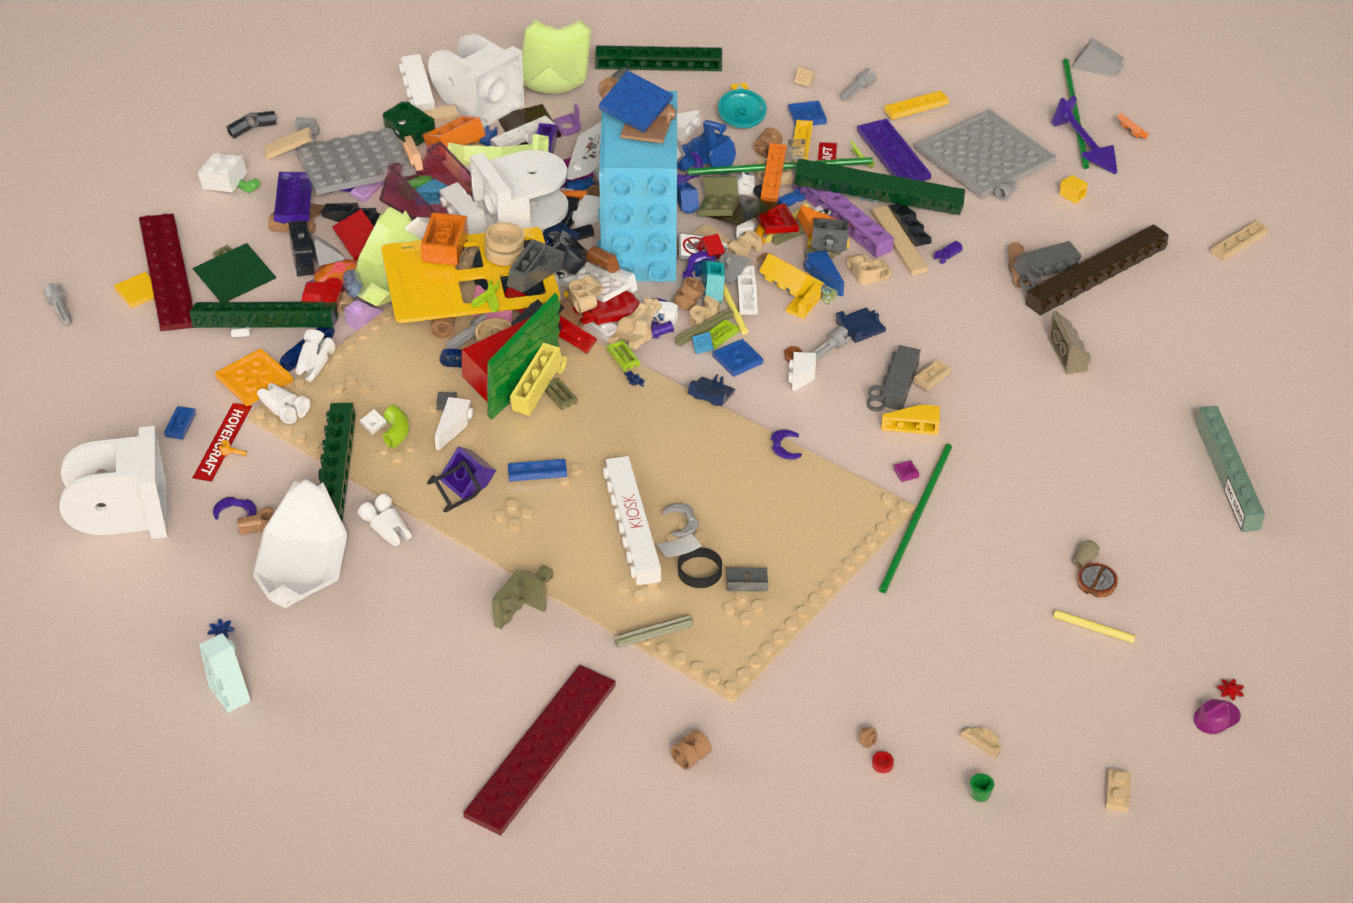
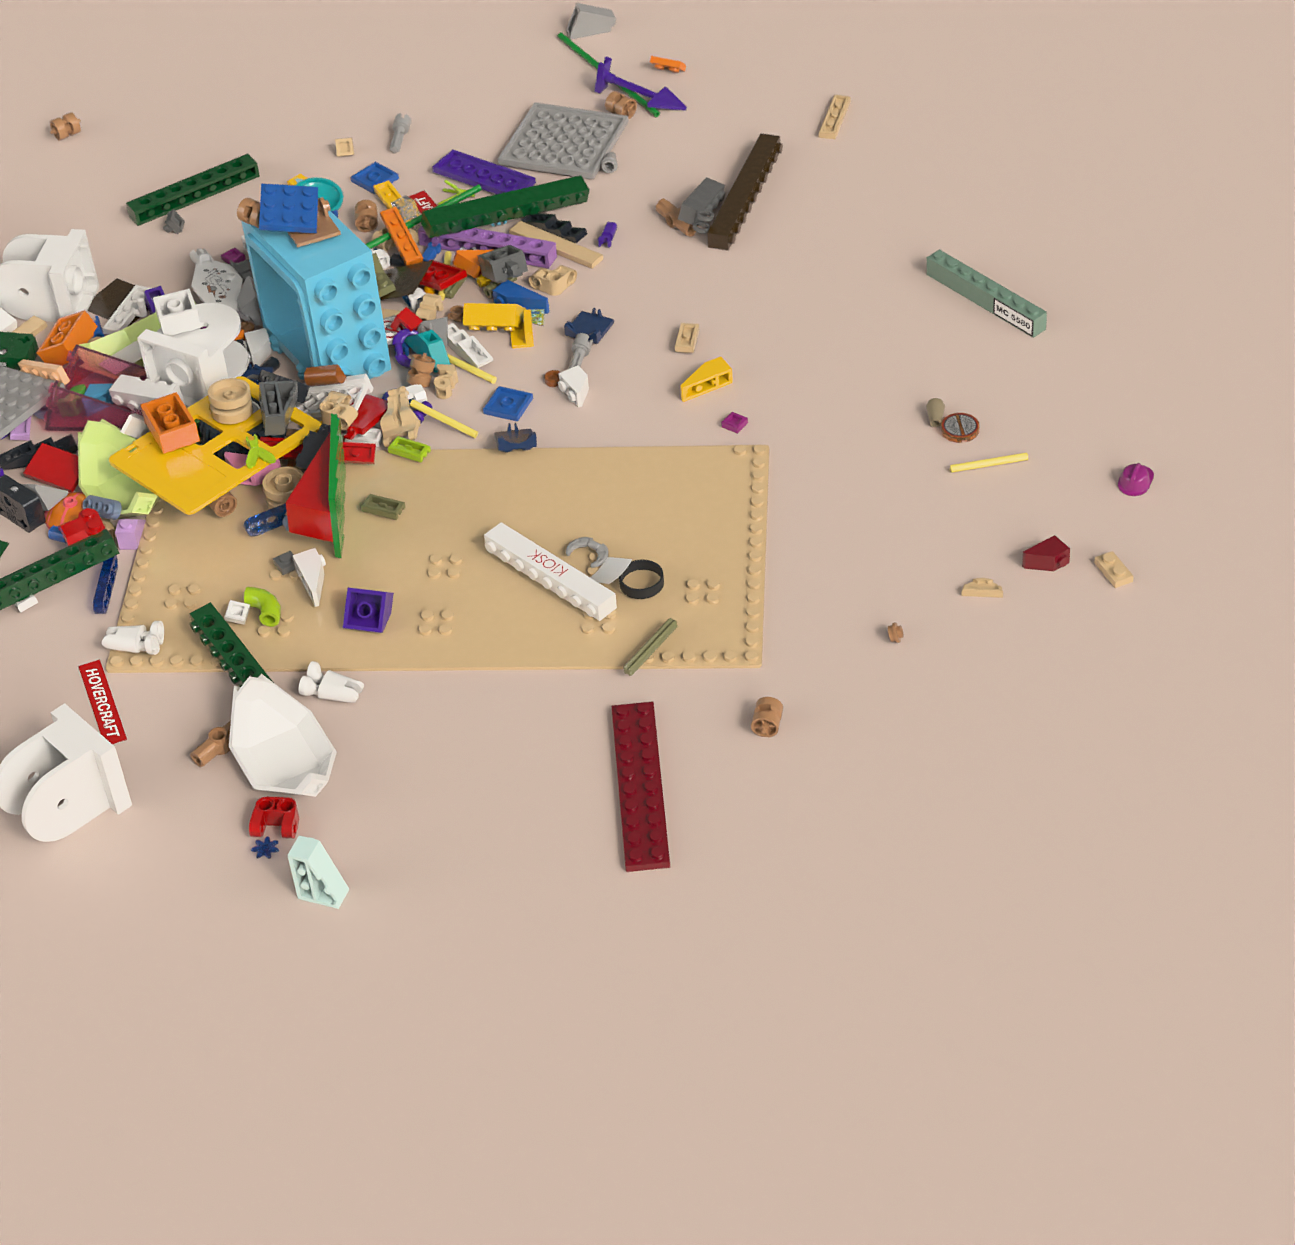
camera: 30 degrees left, 0 degrees up
(180, 422) = (45, 703): blue plate -> none
(226, 449) = (115, 705): light orange hand -> none
(227, 502) = (162, 746): dark purple piece -> none
(251, 374) = (78, 633): light orange plate -> none
(252, 603) = (274, 812): none -> red piece
(309, 358) = (125, 583): white piece -> none
(435, 479) = (353, 620): black piece -> none
(467, 334) = (255, 490): light grey piece -> none
(515, 150) = (176, 312): none -> white brick
(521, 589) = (516, 670): olive plate -> none
(537, 378) = (358, 502): light yellow hinge -> none
(537, 470) = (424, 576): blue tile -> none
(555, 58) = (109, 230): yellowish green panel -> none
(570, 118) = (166, 277): medium lavender piece -> none
(634, 379) = (439, 463): clear blue plant -> none
(673, 345) = (443, 418): none -> light yellow bar
(703, 327) = (456, 391): olive axle -> none
(703, 343) = (468, 405): dark azure tile -> none
(723, 335) = (472, 400): lime tile -> none
(757, 579) = (697, 563): dark grey piece -> none
(777, 437) = (606, 447): dark purple piece -> none
(882, 762) = (921, 645): red tile -> none
(898, 381) = (663, 353): dark grey hinge -> none
(915, 519) = (776, 454): green piece -> none
(916, 105) = (466, 127): yellow plate -> none
(981, 787) = (1016, 620): green hat -> none
(1058, 144) = (620, 104): none -> medium nougat wheel
(1065, 742) = (1046, 555): none -> dark red slope
(1067, 345) = (776, 261): dark tan slope -> none
(1073, 189) = (665, 136): yellow brick -> none
(1231, 689) = (1128, 453): red plant -> none

